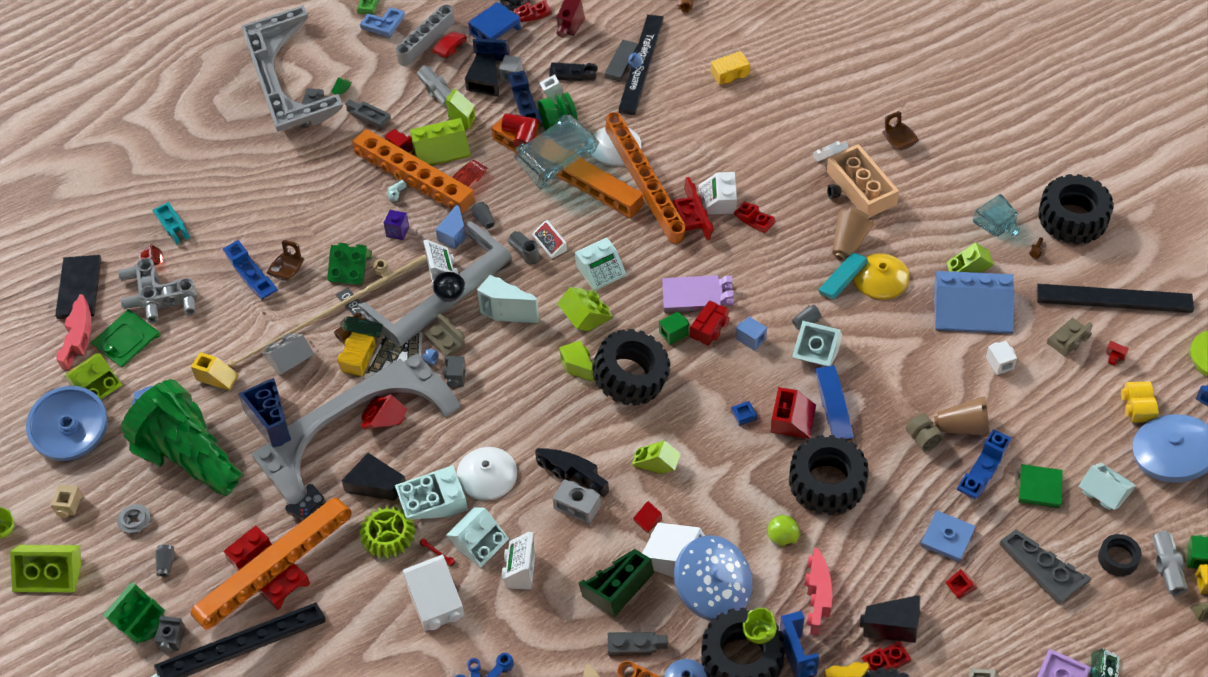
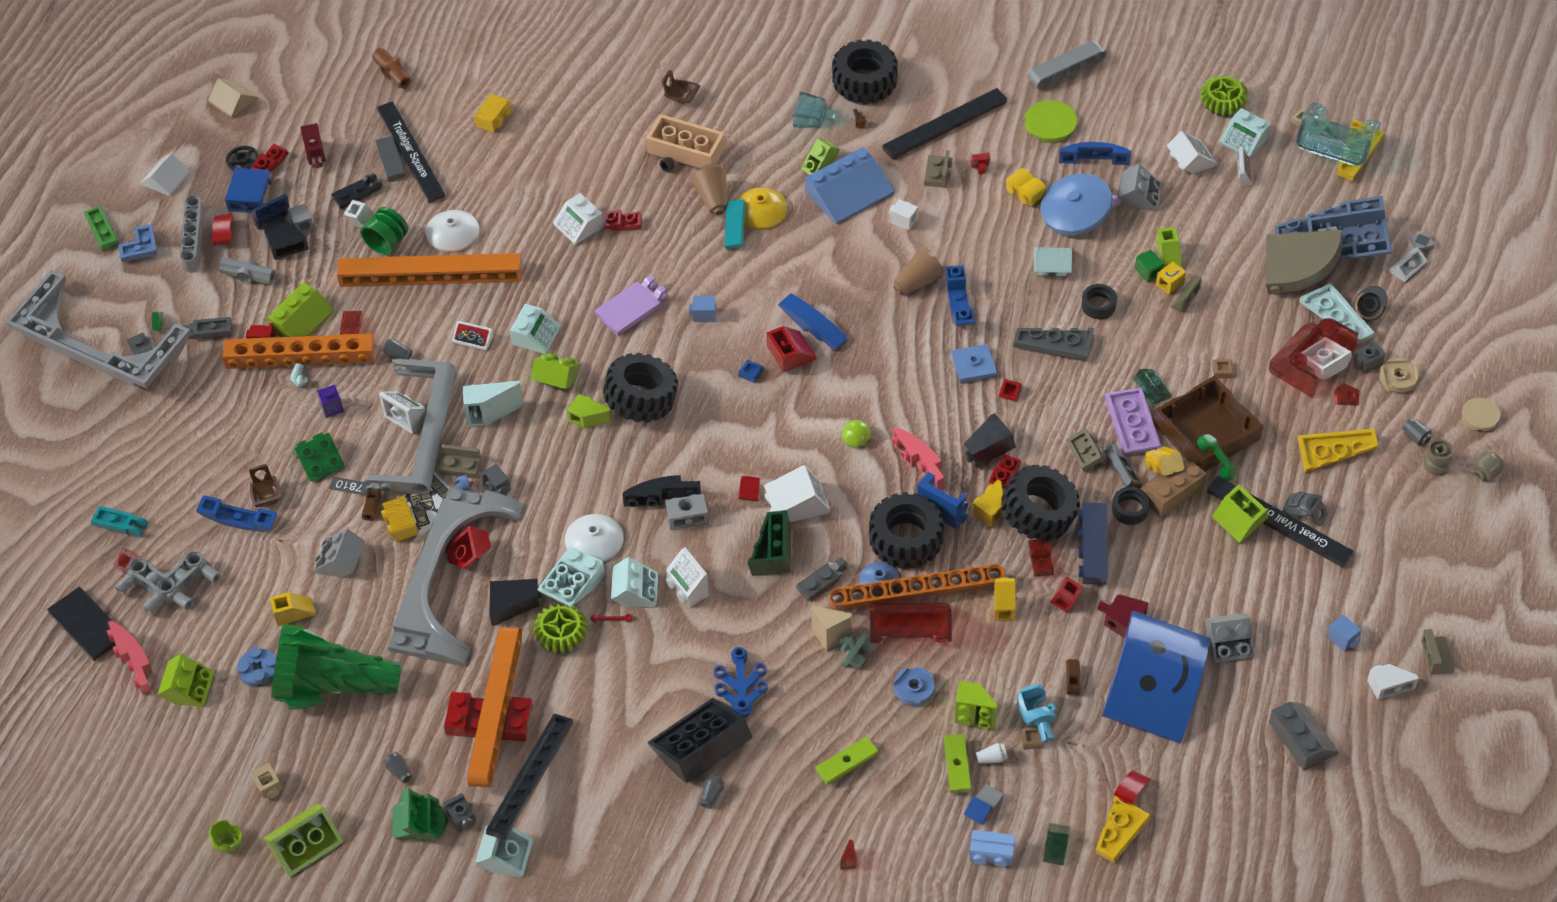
camera: 40 degrees left, 0 degrees up
(67, 423) = (203, 726): medium blue dish -> none
(128, 337) = (176, 634): green container -> none
(133, 511) = (330, 755): light grey gear -> none
(266, 412) = (375, 605): dark blue wedge -> none
(308, 505) = (477, 651): black piece -> none
(361, 326) = (386, 494): clear green slope -> none
(380, 268) = (361, 447): tan piece -> none
(433, 593) = (643, 644): white slope -> none
(448, 286) = (432, 418): black hat -> none
(451, 229) = (382, 375): medium blue slope -> none
(461, 108) = (293, 275): lime slope -> none
(522, 126) = (367, 257): red brick -> none
(523, 96) = (338, 239): dark blue slope -> none
(524, 246) = (459, 353): dark grey piece -> none
(555, 150) = (415, 261): clear light blue windscreen -> none
(637, 60) = (409, 151): medium blue hinge -> none
(645, 178) = (509, 239): orange beam -> none
(656, 457) = (717, 442): lime slope -> none
(674, 328) = (640, 340): green brick -> none
(692, 211) = (570, 244): red bracket -> none
(709, 323) = (664, 321): red brick -> none
(712, 577) = (841, 494): medium blue dish -> none
(760, 626) = (911, 498): lime hair -> none
(809, 314) = (735, 270): dark grey cone -> none
(817, 344) = (763, 285): light aqua slope -> none
(830, 150) = (640, 133): white hinge -> none
(834, 453) = (853, 354): black tyre -> none
(924, 432) = (897, 301): dark tan wheel -> none
(1040, 486) = (1006, 288): green tile -> none
(1169, 563) = (1135, 285): light grey piece -> none

